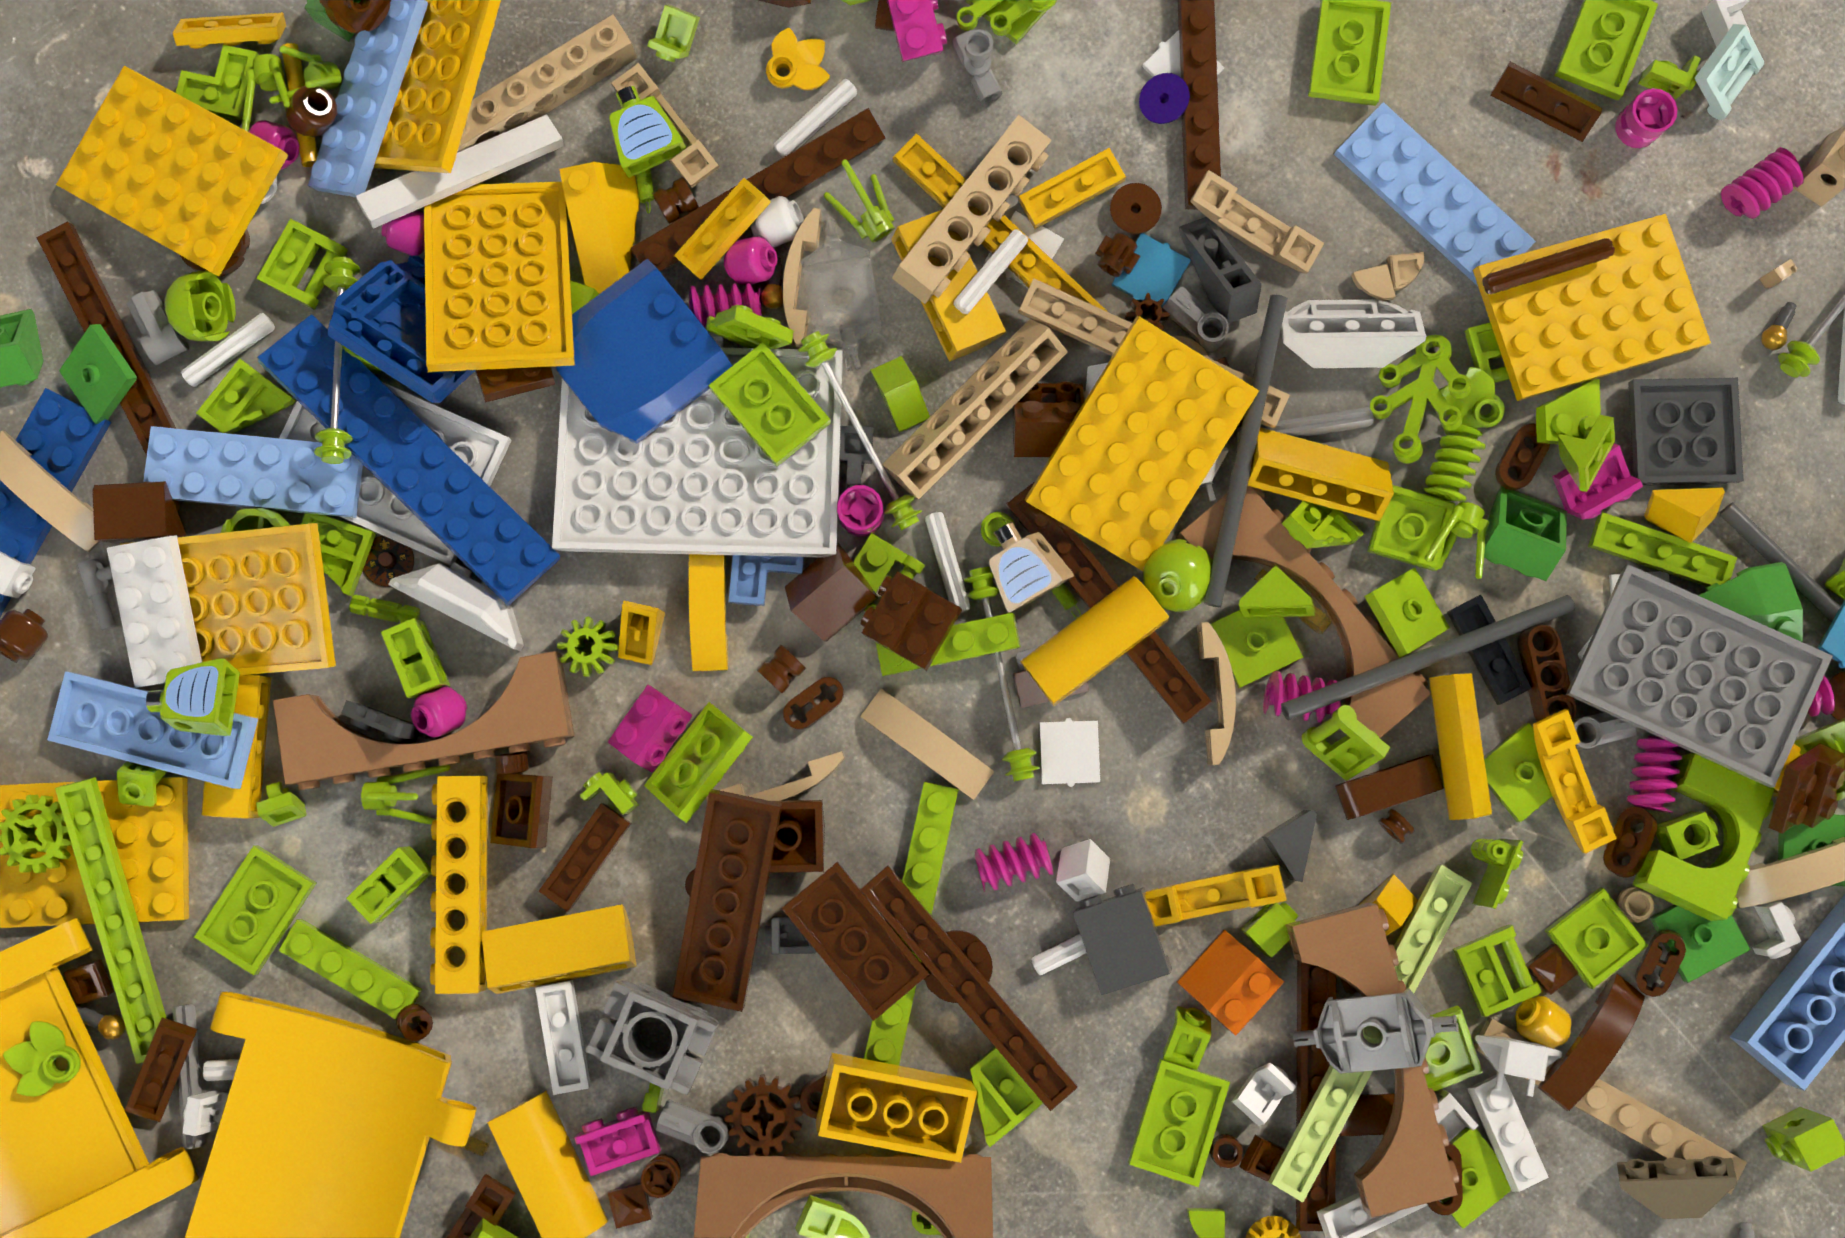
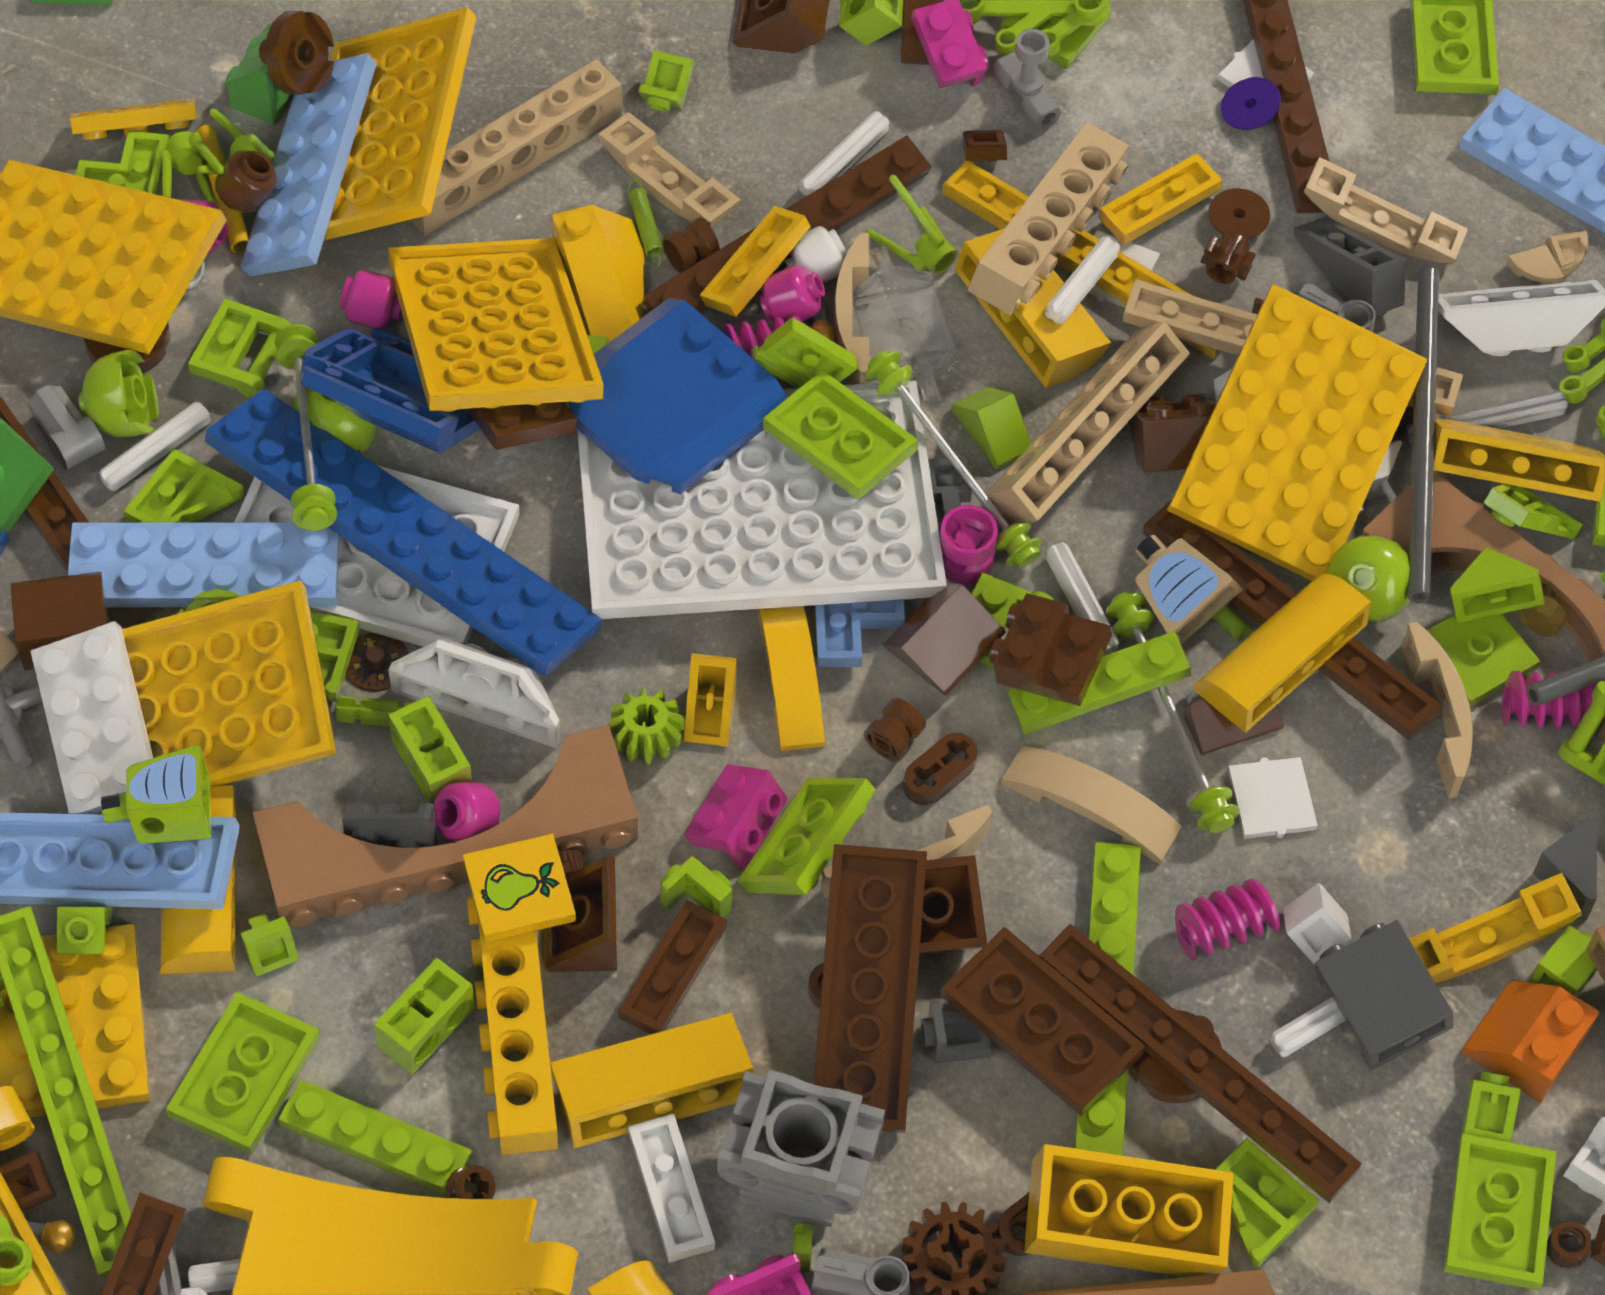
camera: 10 degrees left, 25 degrees down
(383, 795) = (399, 920): lime plant -> none
(468, 791) = (519, 888): none -> yellow tile
(470, 168) = (444, 225): white tile -> none
(643, 133) = (648, 174): torso -> none
(800, 59) = (816, 101): yellow plate -> none
(932, 121) = (984, 145): none -> reddish brown tile
(992, 523) = (1127, 559): lime plate -> none
(1155, 271) = (1269, 268): dark azure piece -> none

